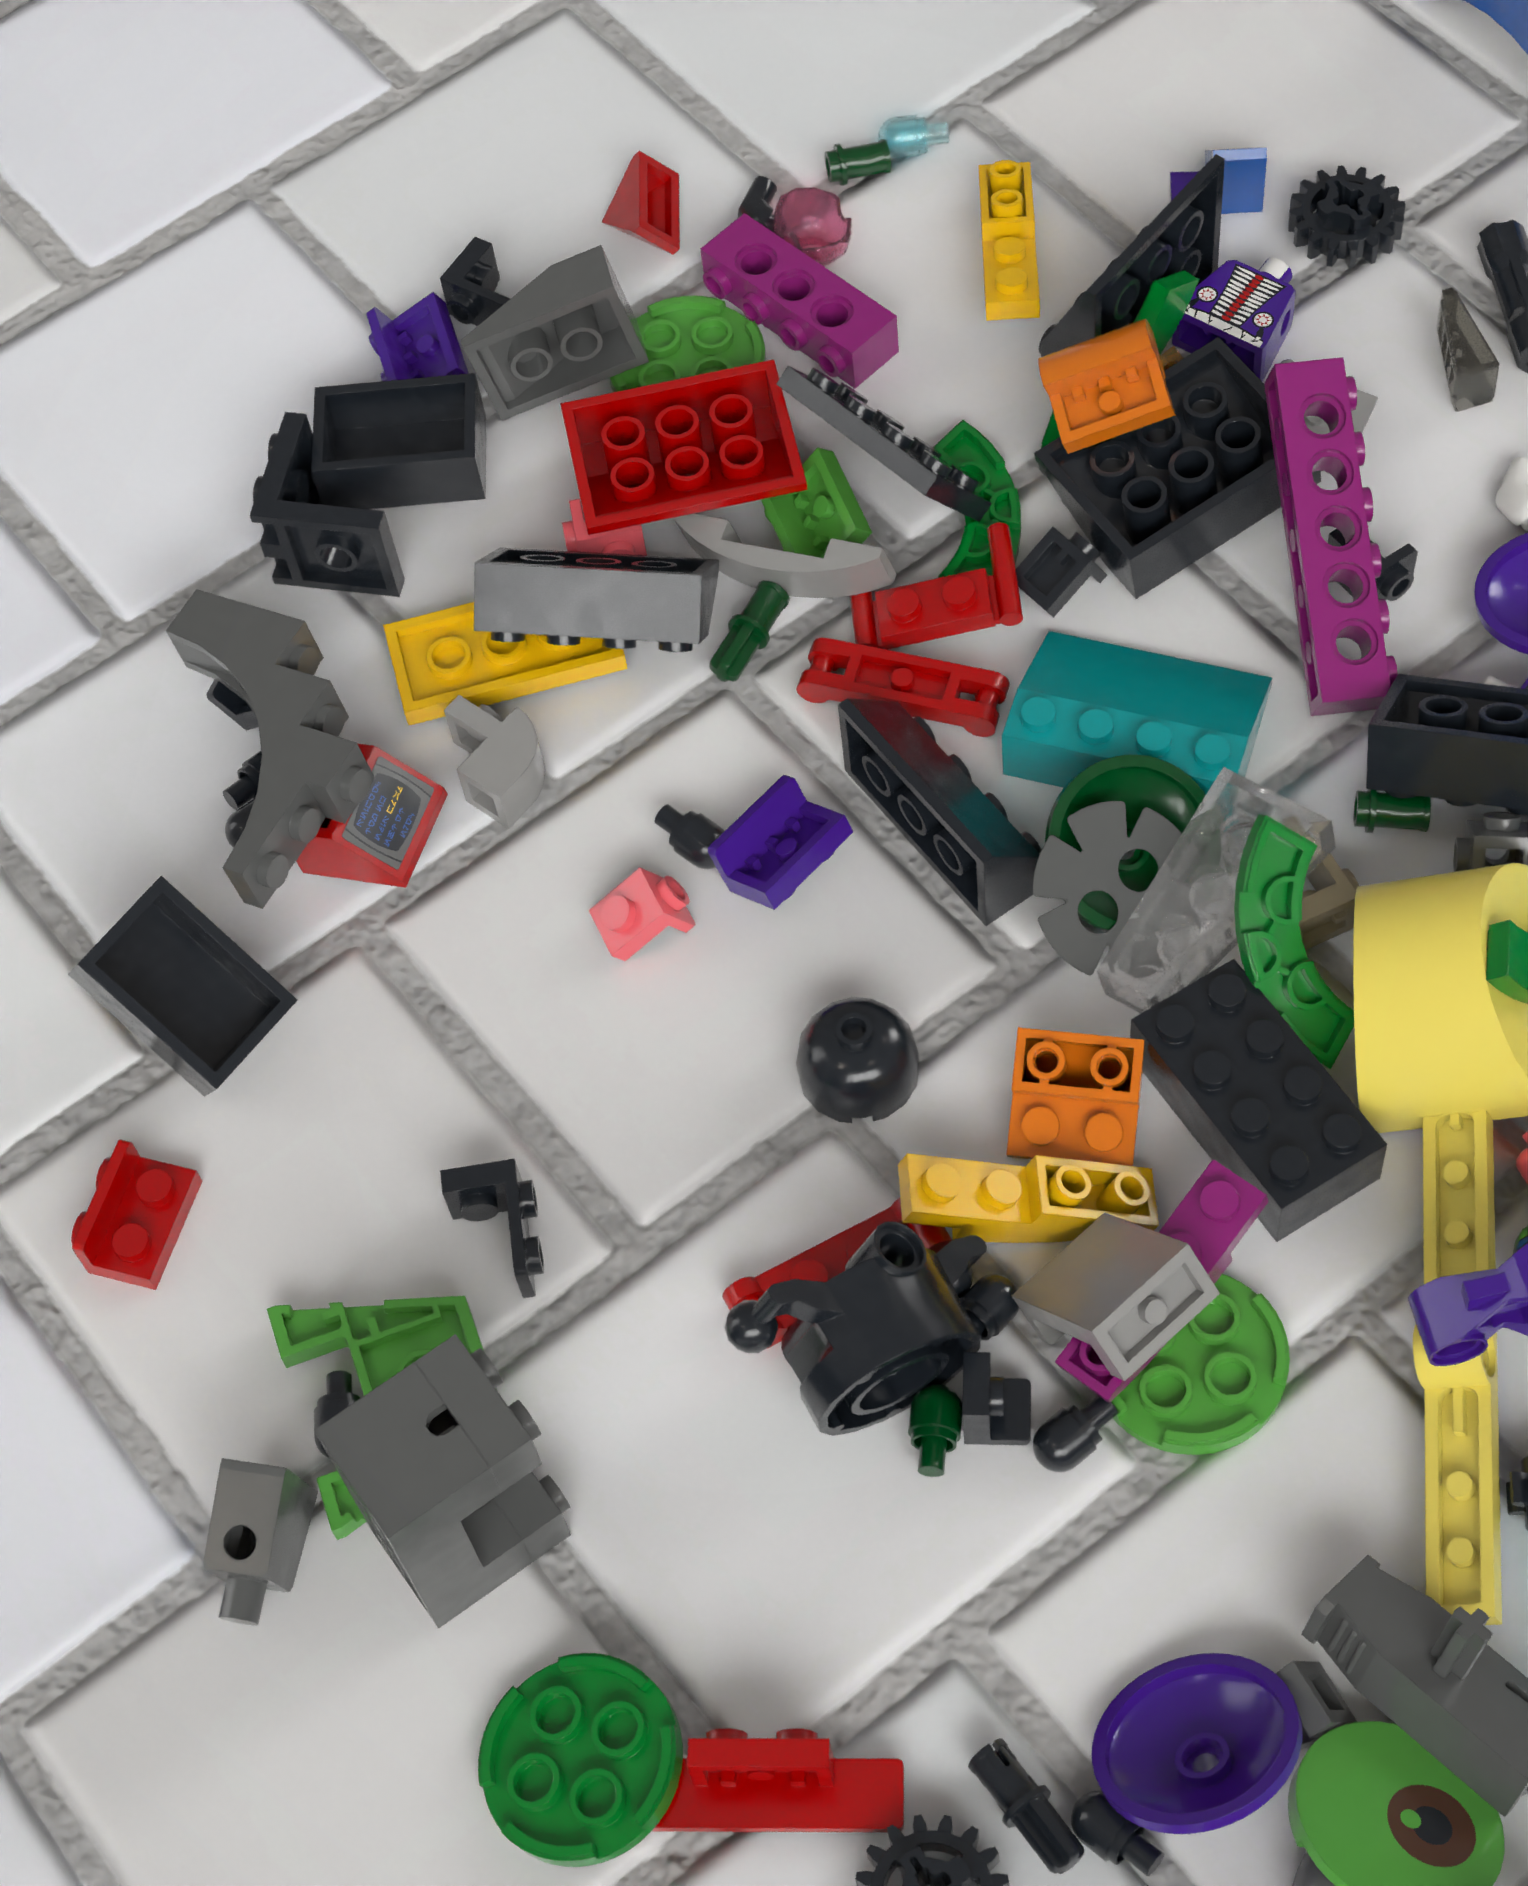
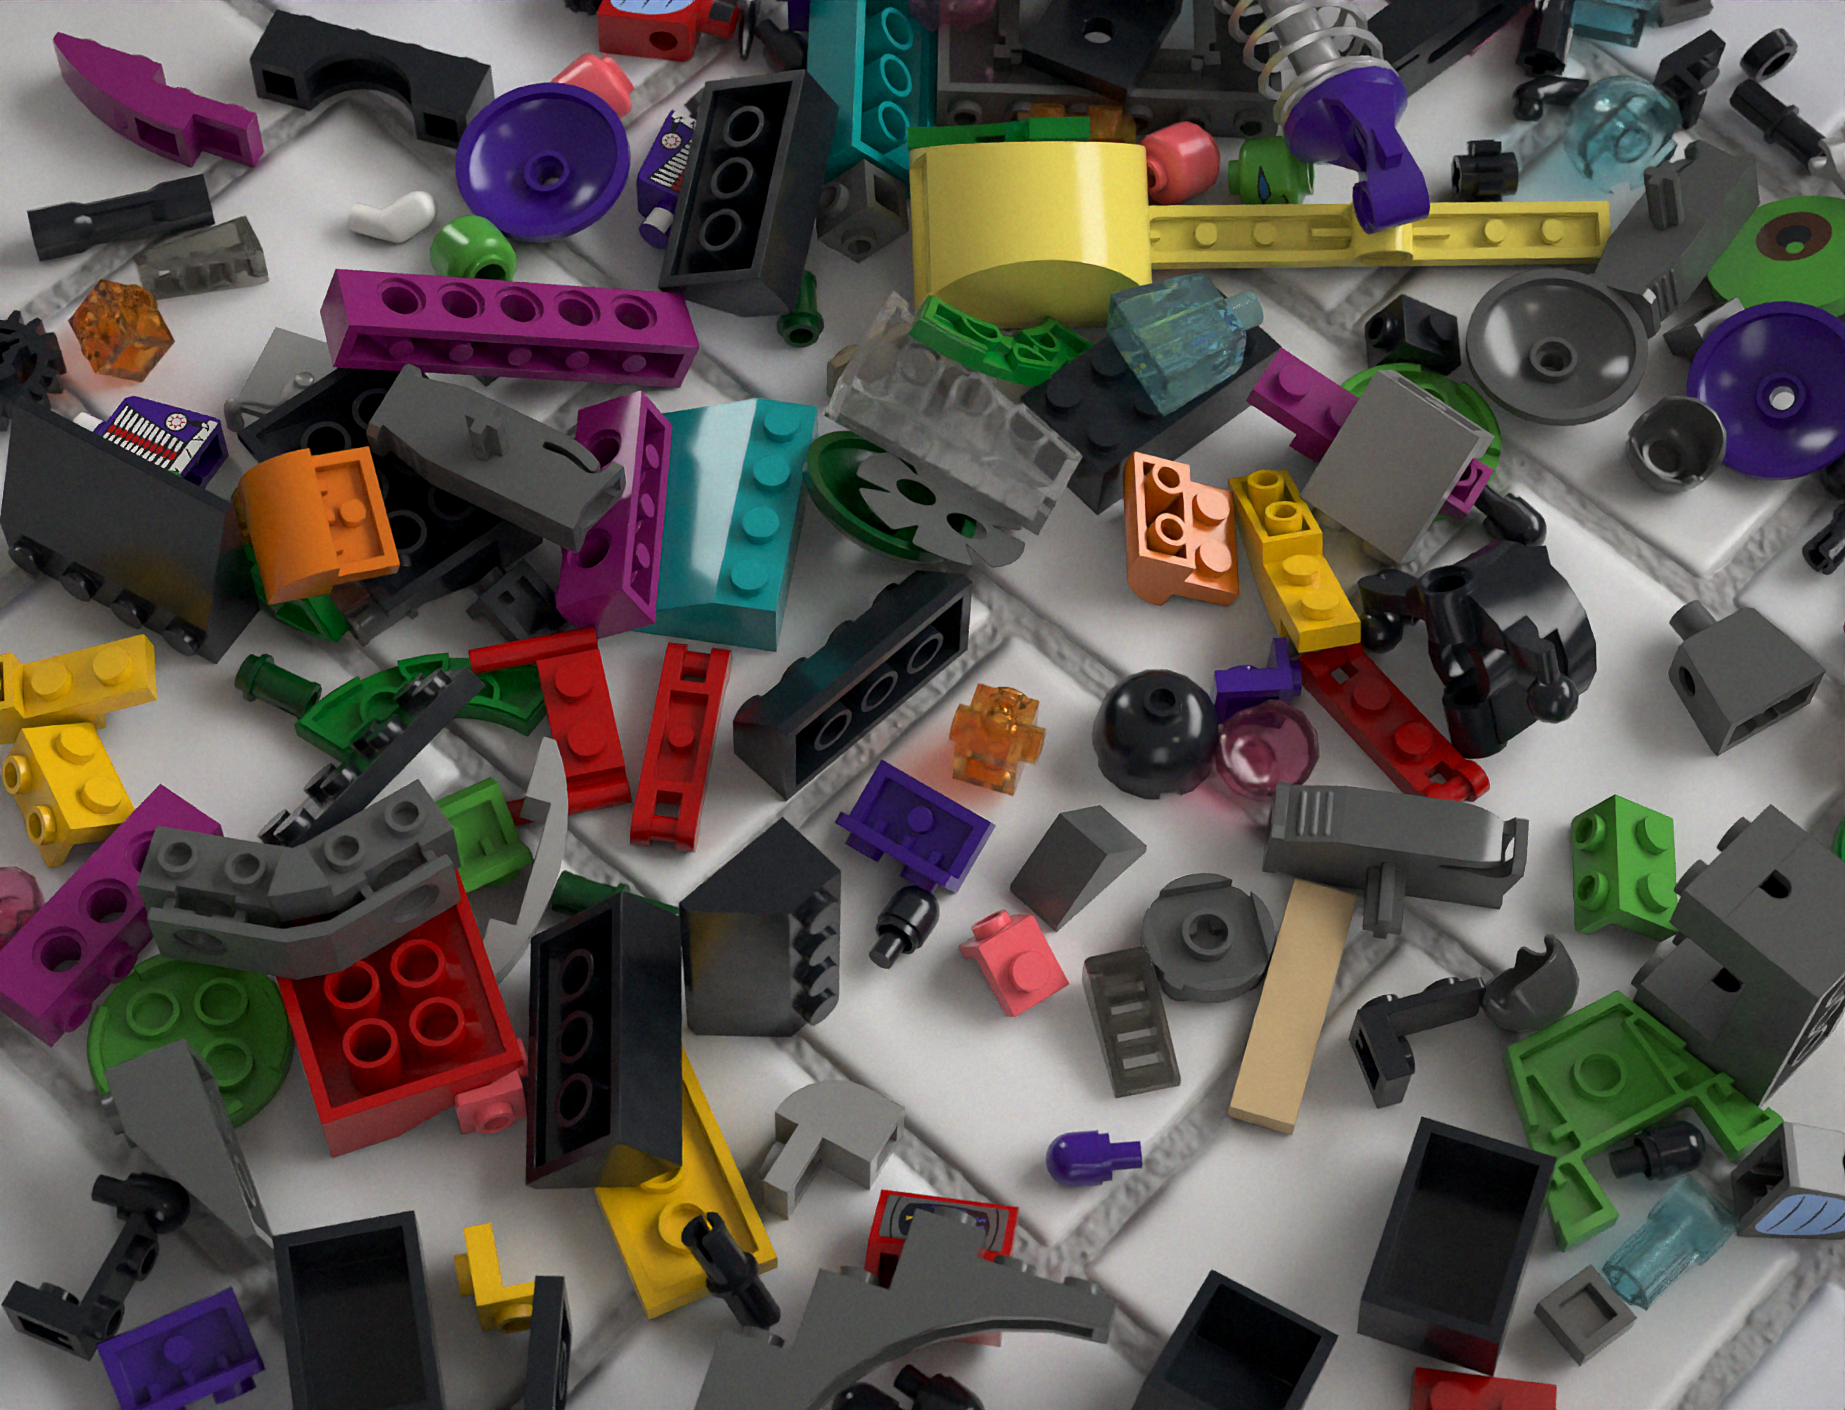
camera: 110 degrees left, 0 degrees up
(204, 1316) = (1585, 1315): none -> dark grey plate
(254, 1411) = (1680, 1231): none -> clear light blue piece
(276, 1203) = (1456, 1246): none -> black piece
(386, 669) = (730, 1272): none -> black axle
(433, 531) = (479, 1274): none -> yellow bracket
(445, 952) = (1089, 1158): none -> dark purple cylinder
(515, 1326) = (1534, 991): none -> dark grey hair
(560, 1137) = (1292, 1007): none -> tan tile
(579, 978) = (1121, 980): none -> clear smoke slope
(635, 1455) = (1624, 869): none -> bright green bracket
(639, 1102) = (1200, 973): none -> dark grey plate
(640, 677) = (763, 940): none -> black slope
(686, 1229) = (1393, 848): none -> dark grey piece
(737, 983) = (1075, 863): none -> dark grey slope
(747, 339) = (236, 897): none -> dark grey brick
(811, 1138) = (1266, 747): none -> clear pink hair
(843, 1615) = (1738, 674): none -> dark grey torso
(859, 913) = (996, 738): none -> clear orange brick
(885, 1143) = (1249, 686): none -> dark purple bracket
(924, 277) = (65, 788): none -> yellow bracket
(1008, 396) = (276, 686): none -> dark green pin
(1137, 633) = (618, 566): none -> magenta brick
(1141, 1617) = (1676, 444): none -> dark grey hair
(1161, 504) = (495, 457): none -> dark grey piece
(1268, 1086) = (1181, 335): none -> clear light blue torso
(1286, 1469) = (1560, 323): none -> dark grey dish
(1321, 1381) = (1414, 333): none -> black bracket
(1379, 289) = (121, 330): none -> clear orange brick
(1455, 545) = (472, 249): none -> bright green head

